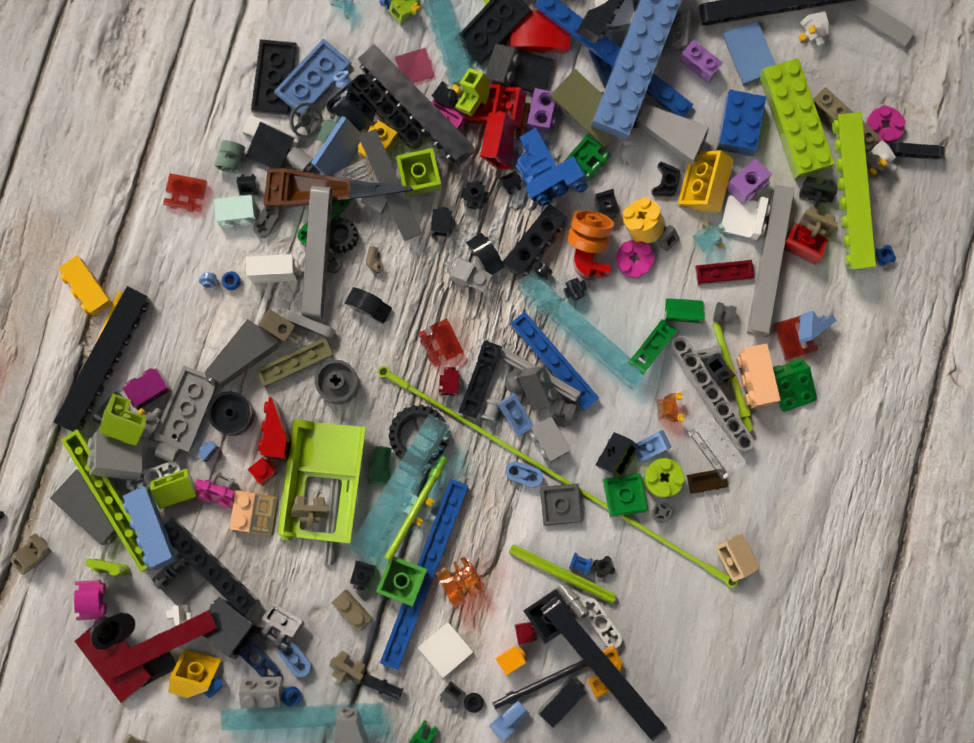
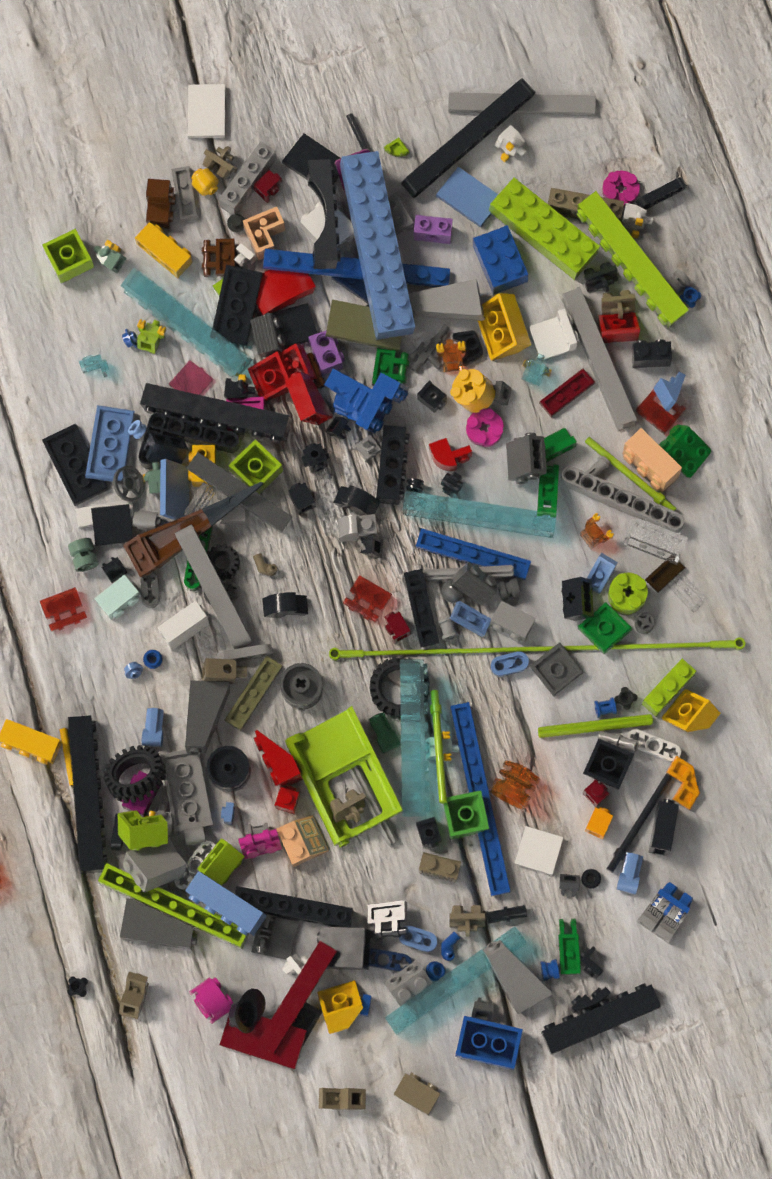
camera: 30 degrees left, 5 degrees down
(103, 566) = (203, 963): lime plate -> none
(154, 384) = (142, 787): none -> black tyre
(190, 343) = (153, 733): none -> medium blue piece
(315, 682) = (447, 949): none -> blue arm
(474, 301) = (374, 546): none -> black tile
(476, 91) = (260, 369): lime brick -> none
(525, 214) = (368, 448): none -> light grey tile
(590, 231) = (434, 427): orange wheel -> none
(604, 668) = (680, 778): black beam -> none
(632, 165) = (430, 352): none -> dark grey piece
(646, 178) = (451, 355): none -> clear orange piece
(646, 582) = (669, 687): none -> lime brick
(650, 616) = (691, 712): none -> yellow slope
(651, 307) = (526, 458): none -> dark grey brick
(719, 369) = (615, 474): black brick -> none
(729, 313) = (589, 426): dark grey wheel -> none
(737, 557) = (730, 619): tan brick -> none
(755, 173) = (538, 295): medium lavender brick -> none
(819, 284) = (651, 354): none -> black brick
(883, 235) = (678, 281): none -> light grey wheel

